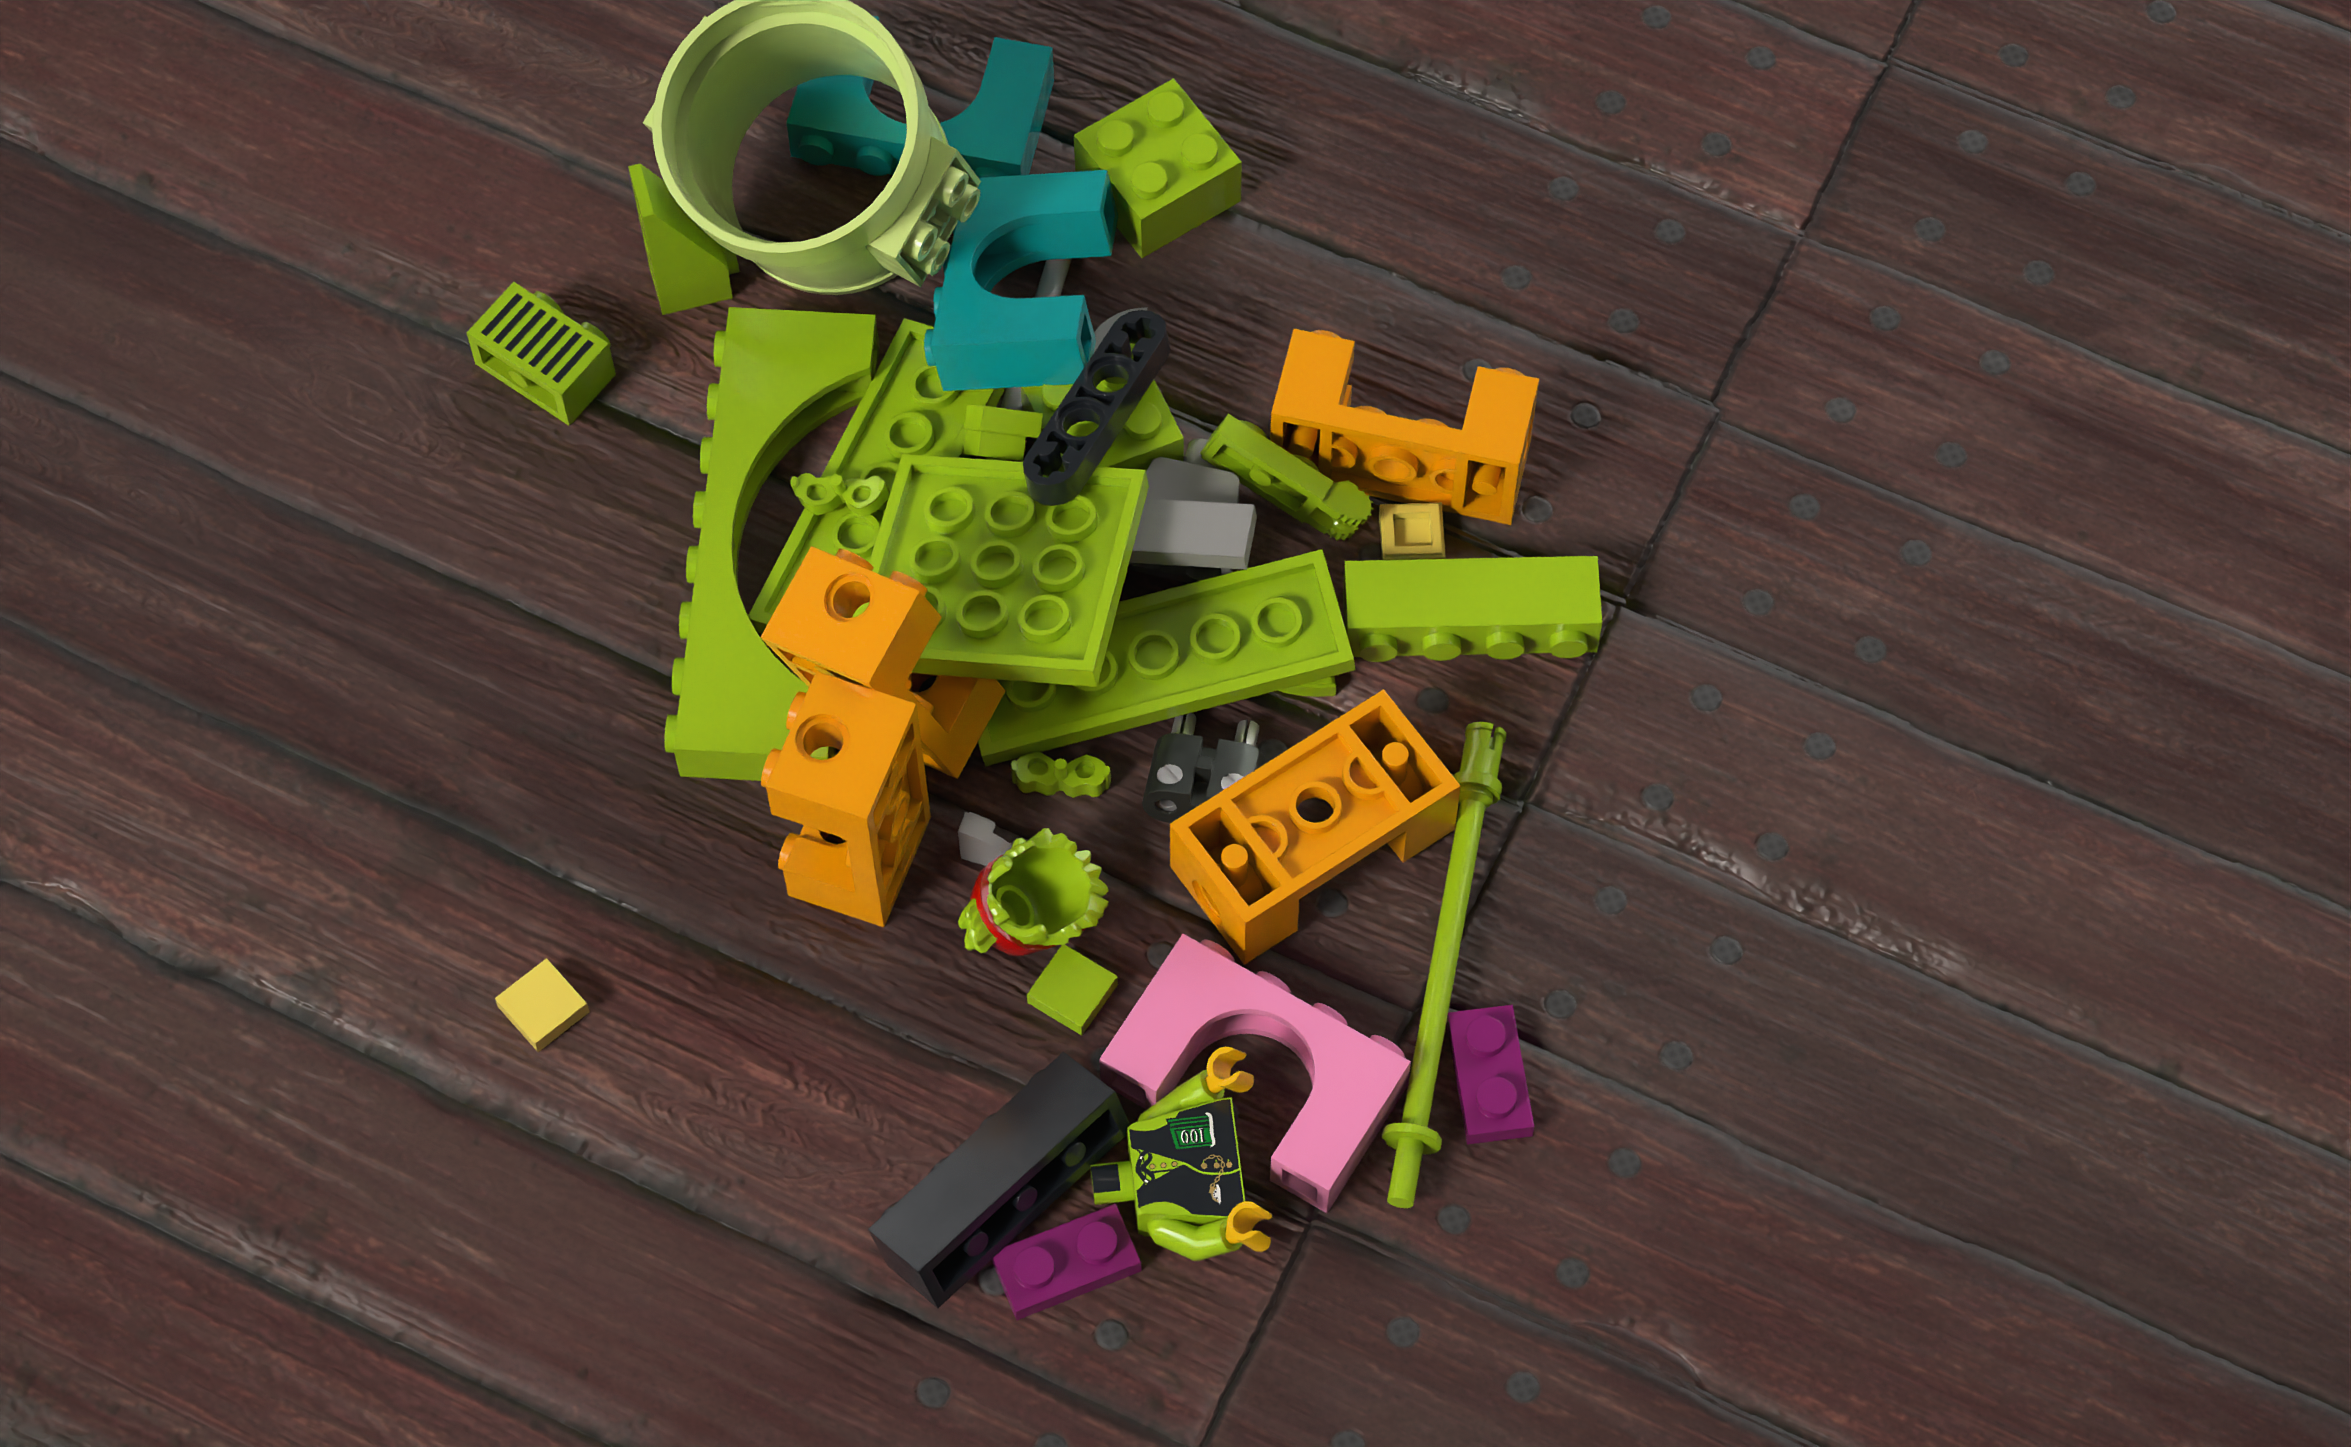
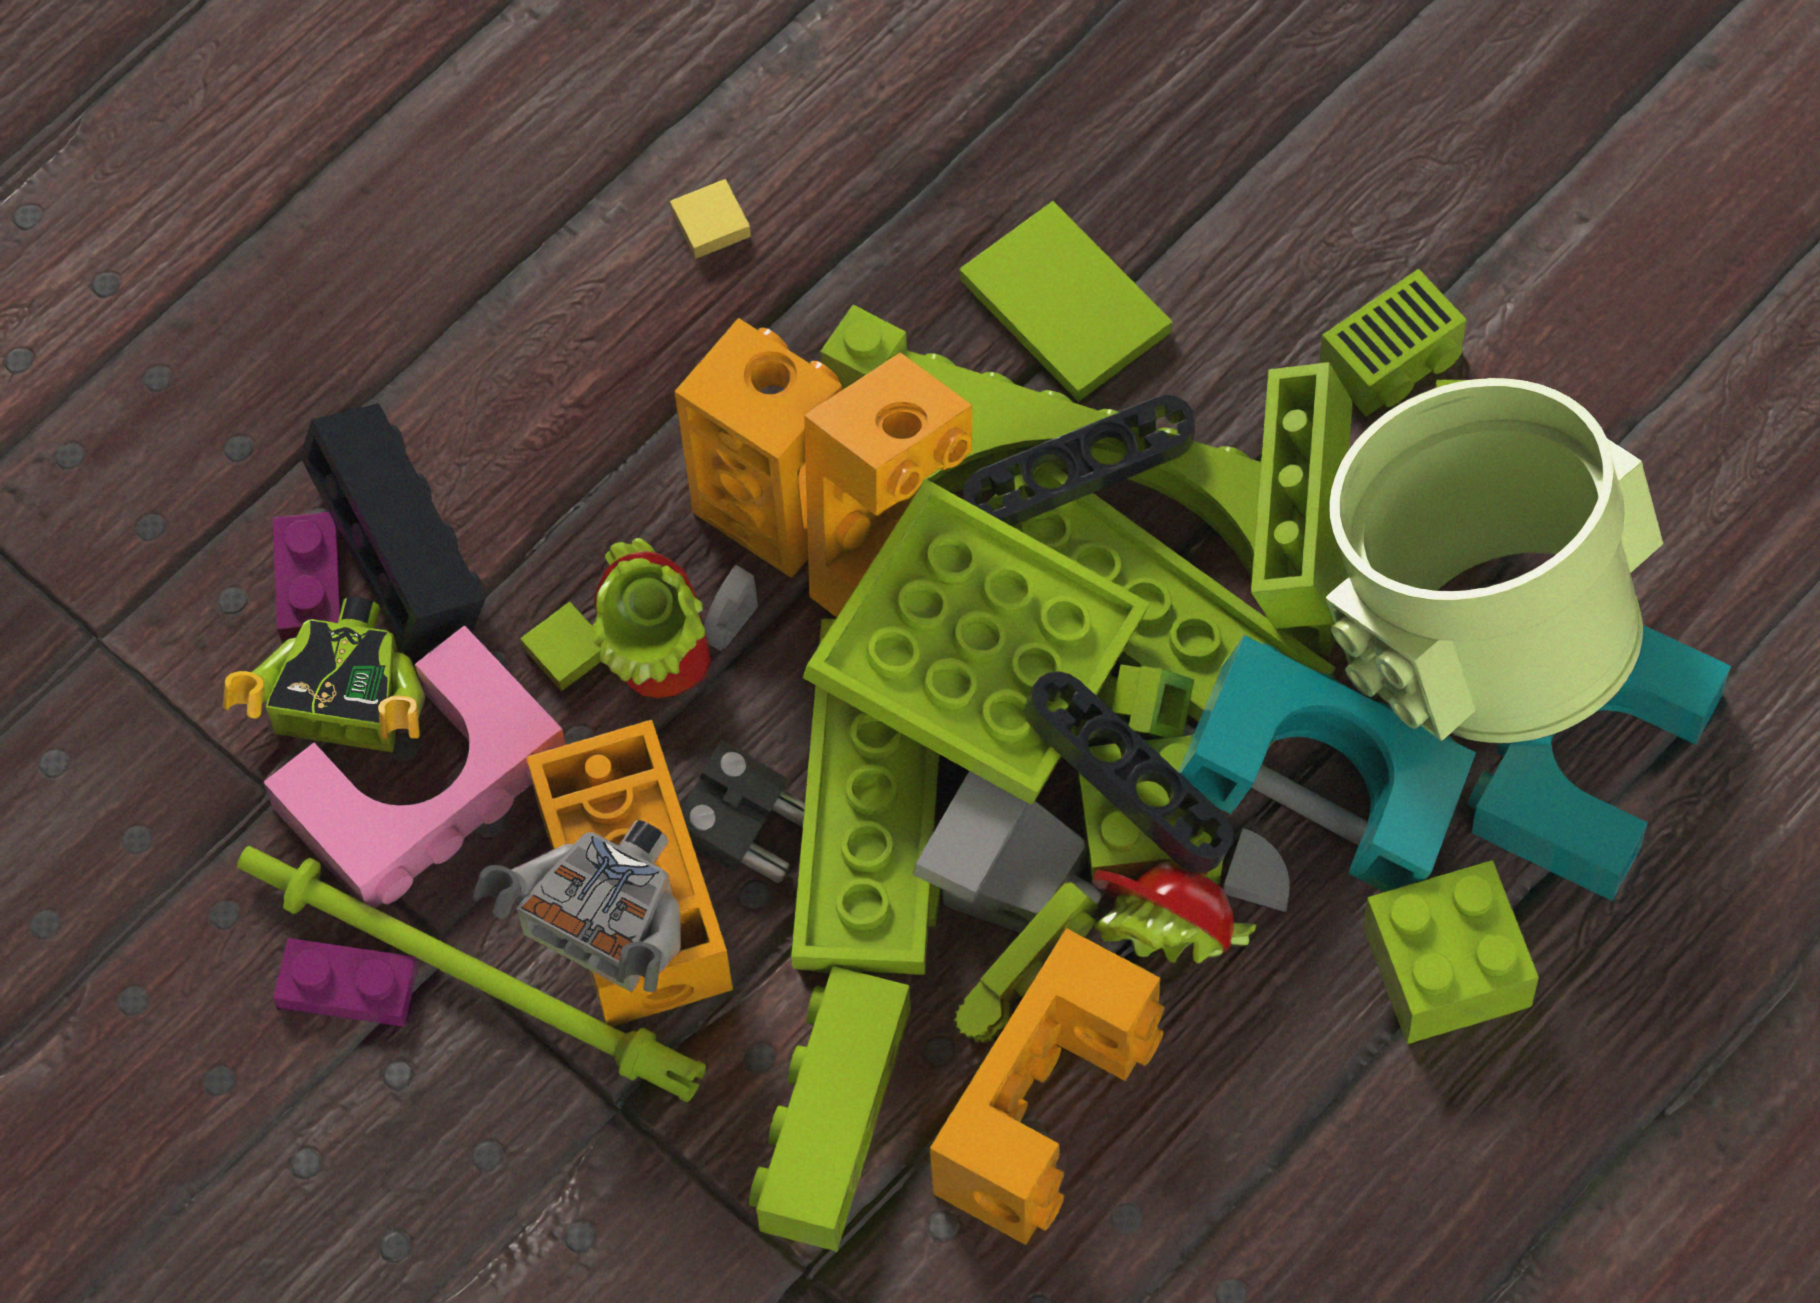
camera: 110 degrees right, 0 degrees up
(557, 652) = (1065, 301): none -> lime tile
(683, 797) = (861, 345): none -> lime brick
(741, 504) = (1074, 453): none -> black beam
(762, 340) = (1301, 452): none -> lime brick
(828, 492) = (1147, 537): lime piece -> none
(1042, 774) = (783, 708): lime piece -> none
(1205, 374) = (1170, 912): none -> hair
(1395, 778) = (596, 904): none -> torso
(1411, 531) = (939, 1083): light yellow tile -> none

